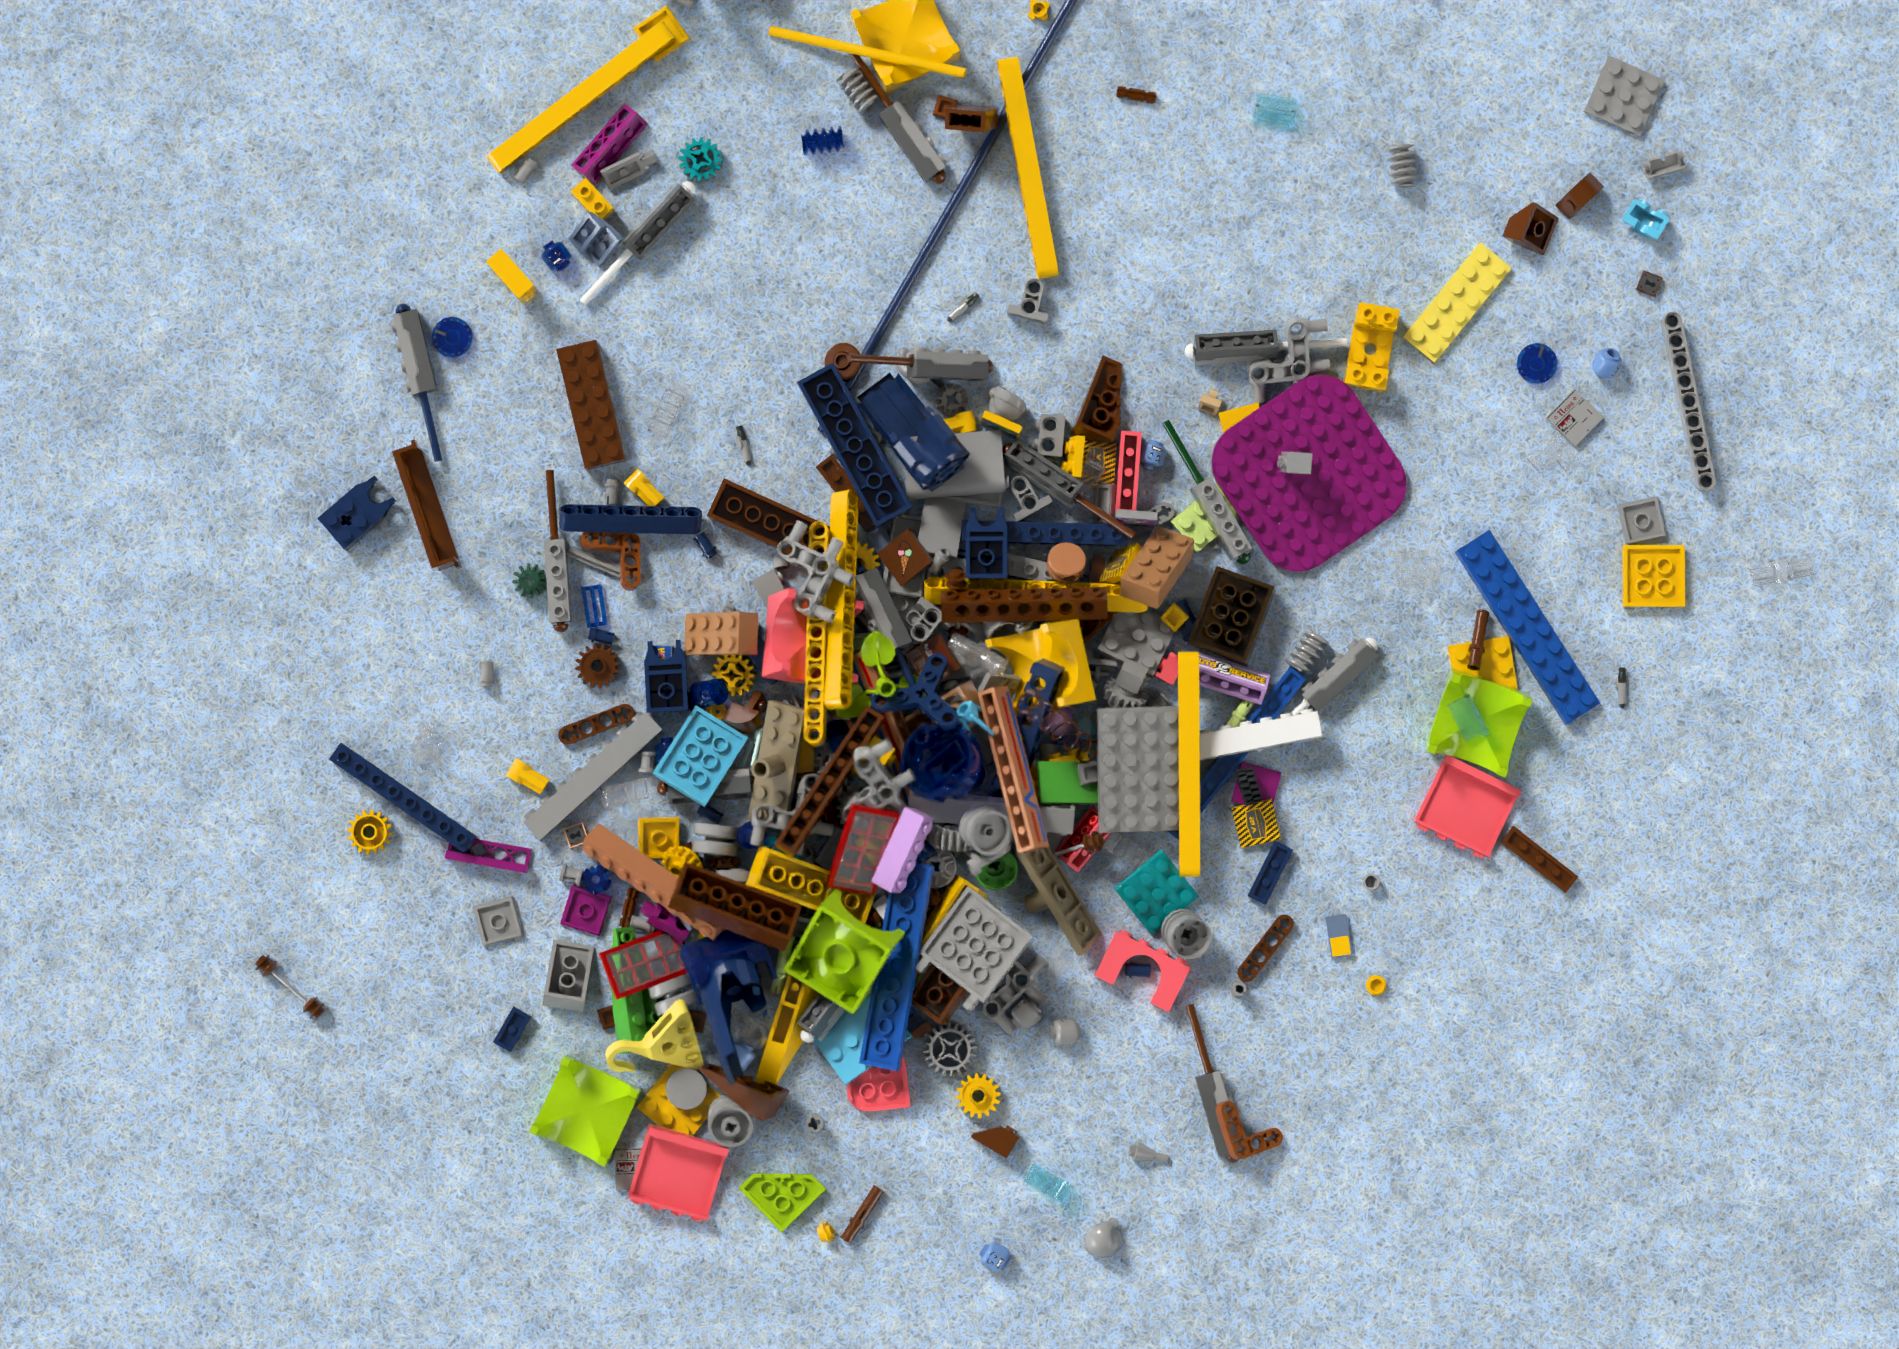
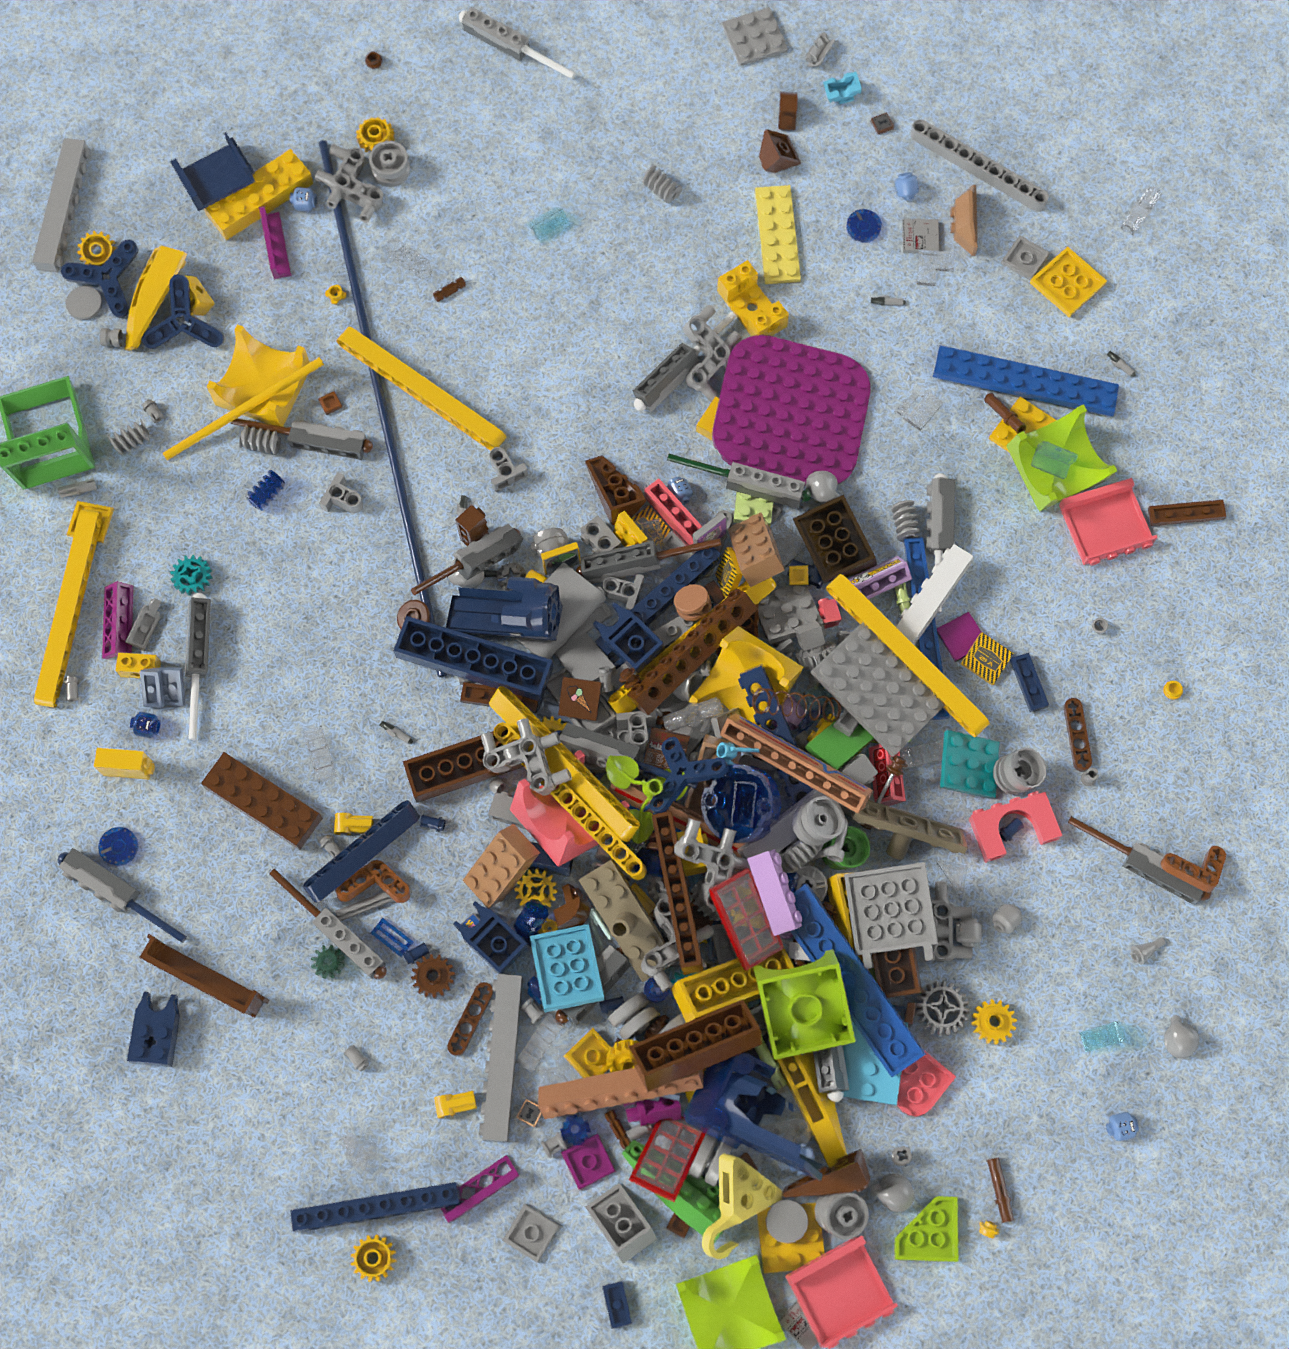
camera: 40 degrees left, 15 degrees down
(784, 1142) = (894, 1192): none -> light grey piece
(878, 208) = (343, 501): none -> light grey tile
(954, 335) = (471, 525): none -> reddish brown brick
(971, 118) = (353, 386): reddish brown brick -> none
(998, 1139) = (1039, 1039): reddish brown slope -> none
(1209, 403) = (684, 427): tan tile -> none
(1248, 786) = (958, 635): black tyre -> none
(1266, 563) = (822, 486): none -> light grey piece
(1295, 462) = (778, 403): light grey brick -> none
(1338, 935) = (1115, 681): sand blue tile -> none
(1487, 448) = (886, 300): none -> piece
(1624, 440) = (965, 220): none -> medium nougat wedge

